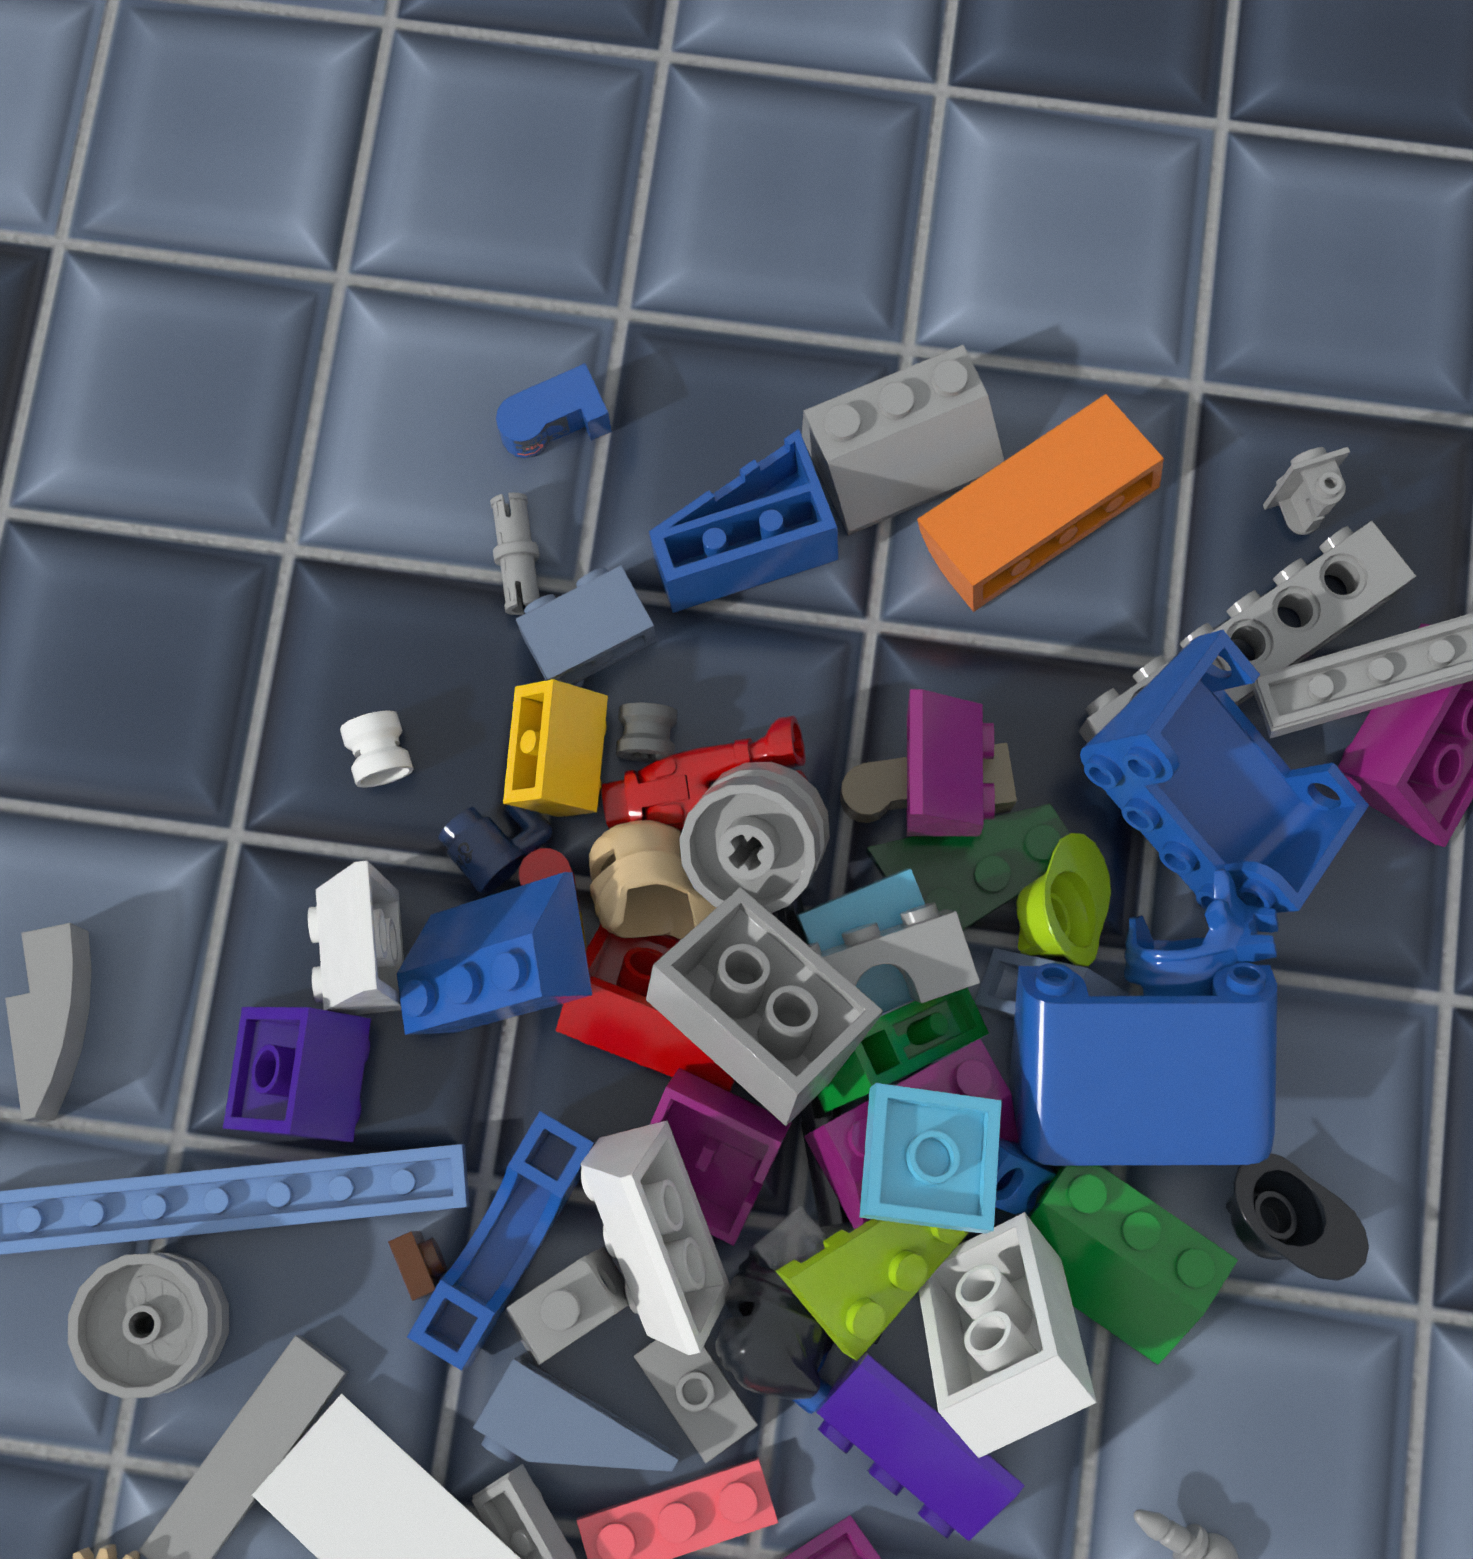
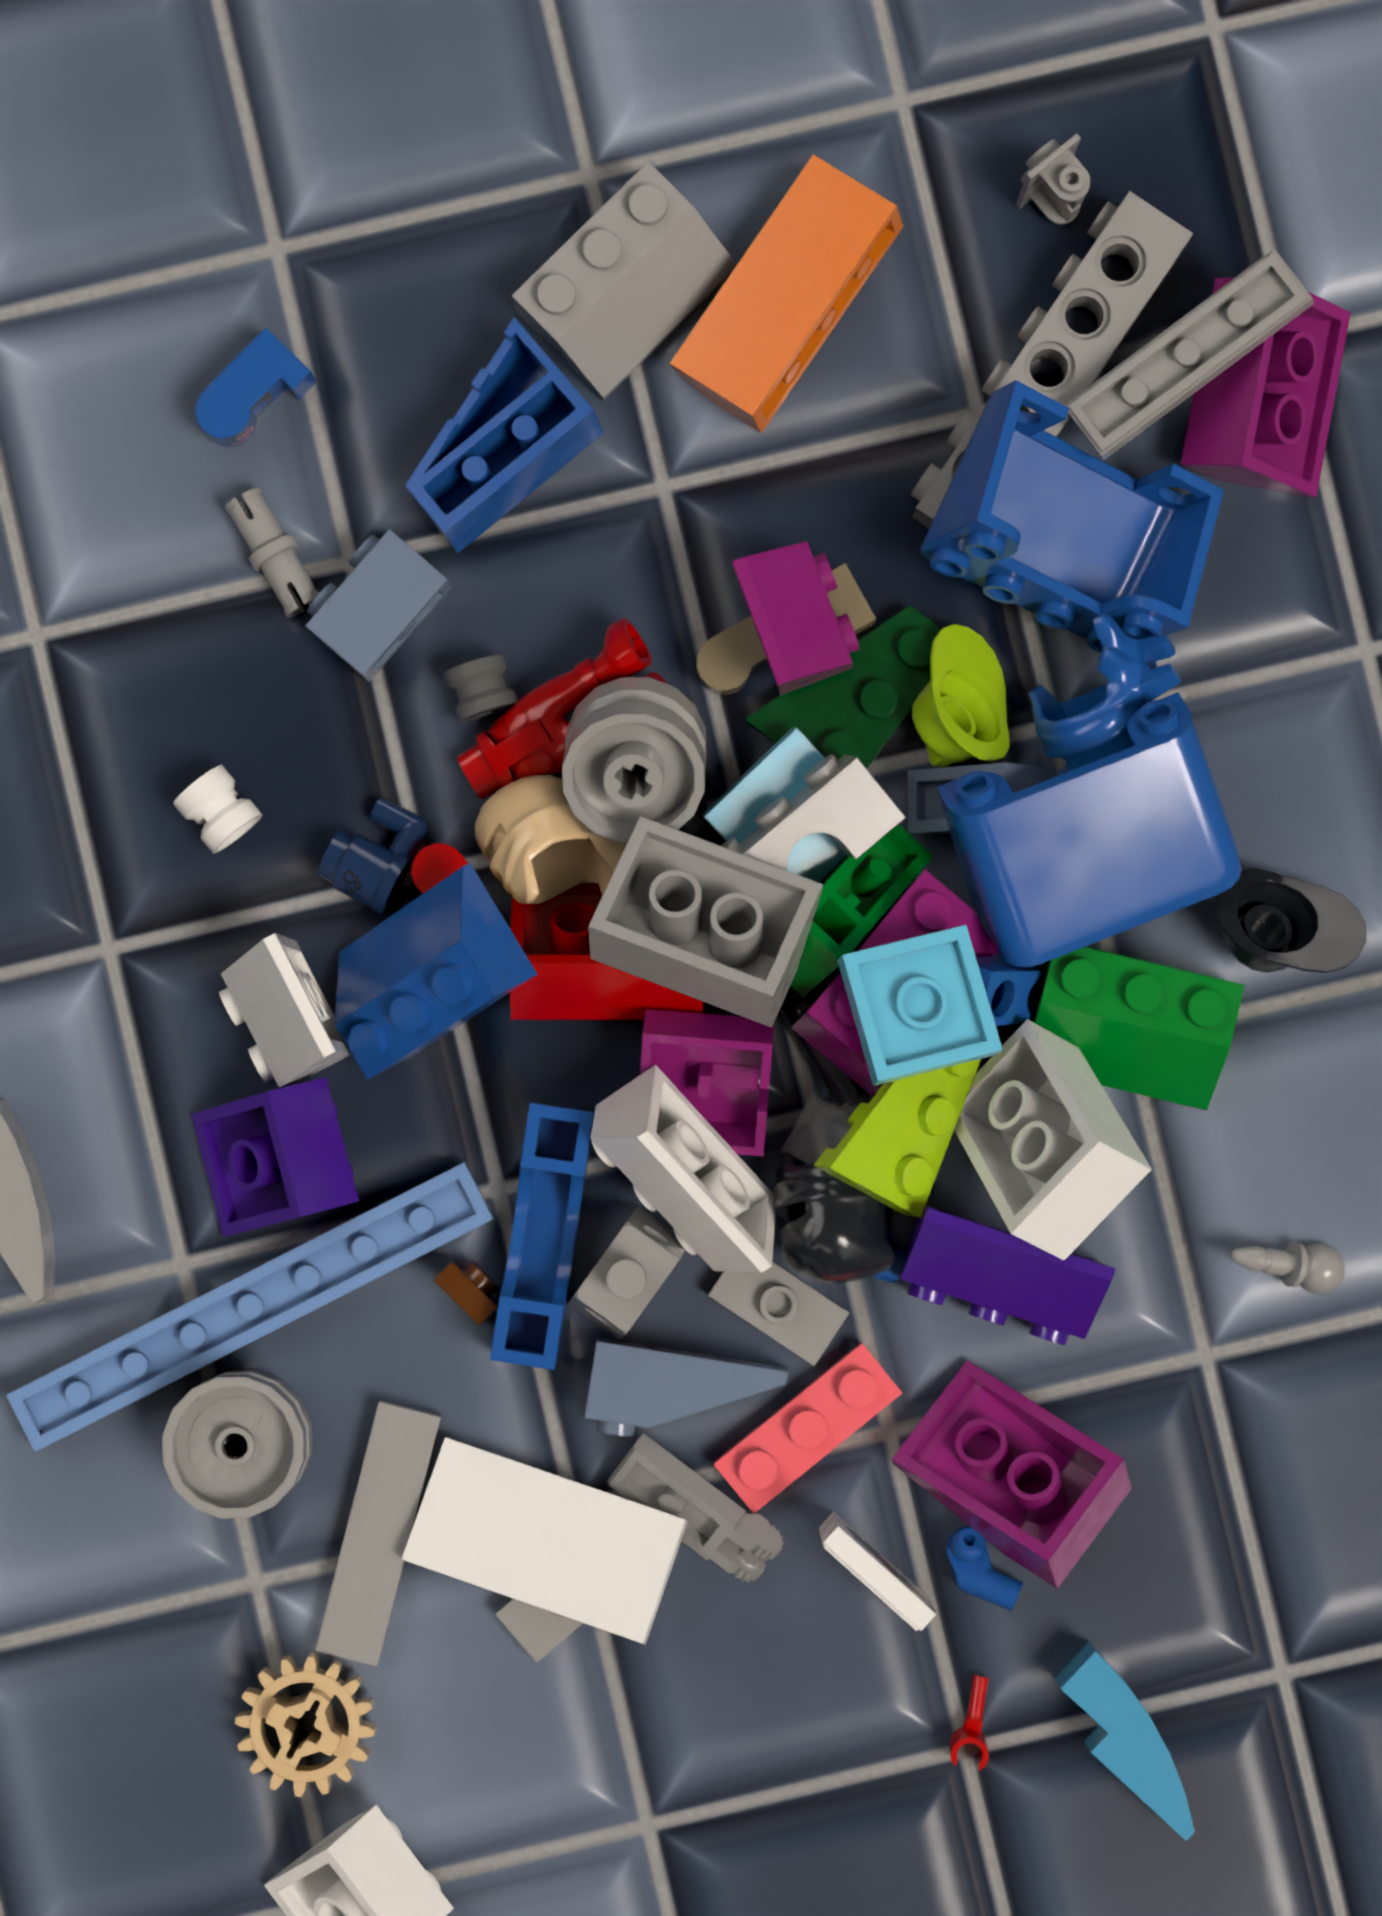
camera: 20 degrees left, 10 degrees up
(555, 748) = (398, 741): yellow brick -> none

